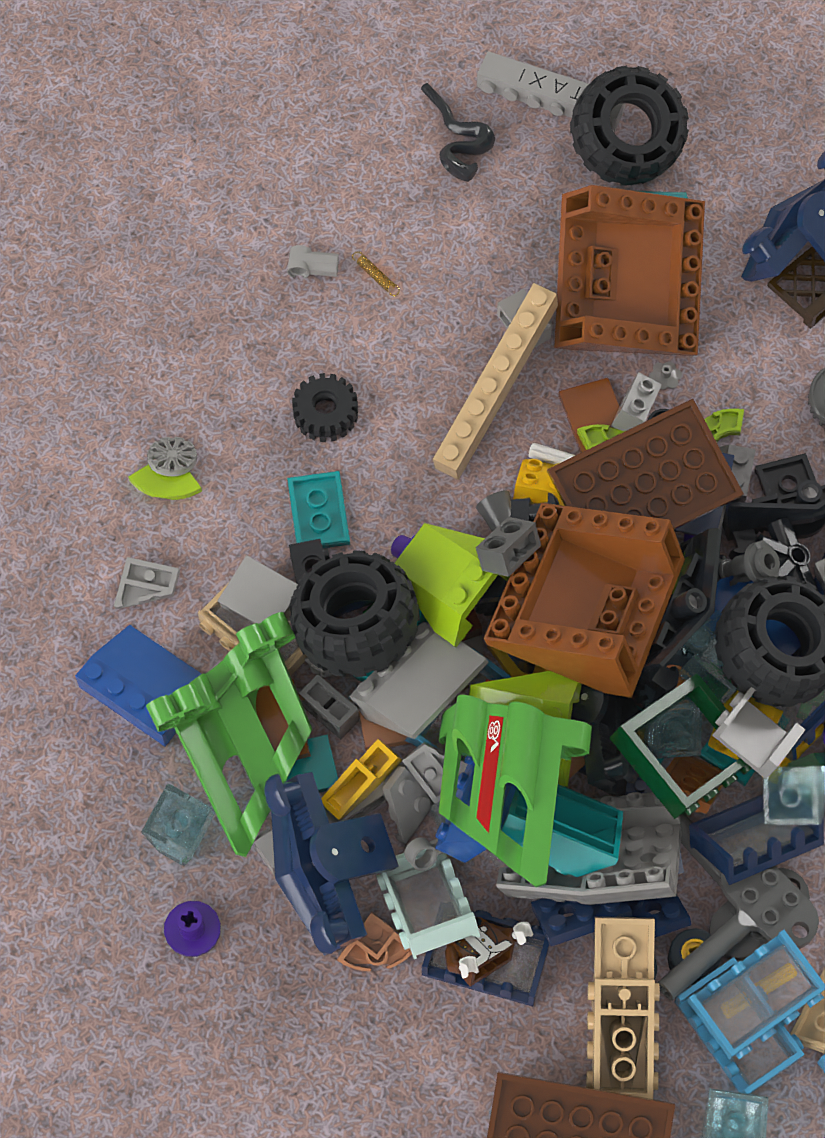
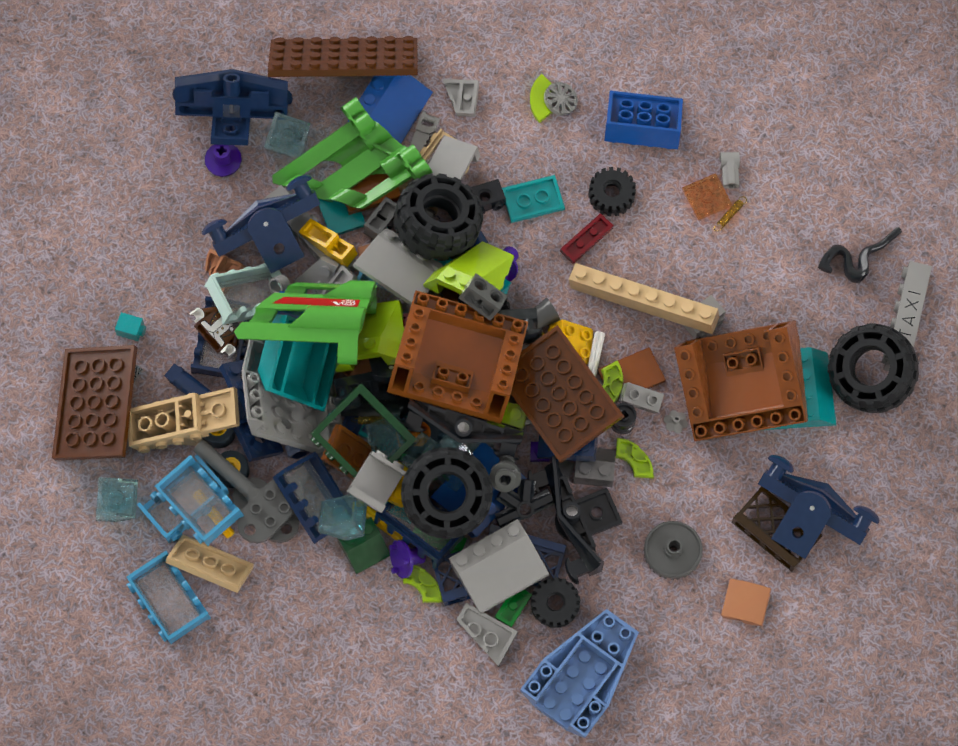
camera: 80 degrees right, 5 degrees up
(63, 732) = (343, 57): none -> reddish brown plate
(108, 902) = (231, 100): none -> dark blue piece
(193, 643) = (423, 132): none -> light grey piece
(222, 356) = (643, 120): none -> blue slope
(346, 297) = (707, 196): none -> clear orange tile
(390, 448) = (586, 238): none -> dark red plate
(453, 1088) = (130, 327): none -> teal brick
(558, 1004) = (184, 381): none -> dark blue piece

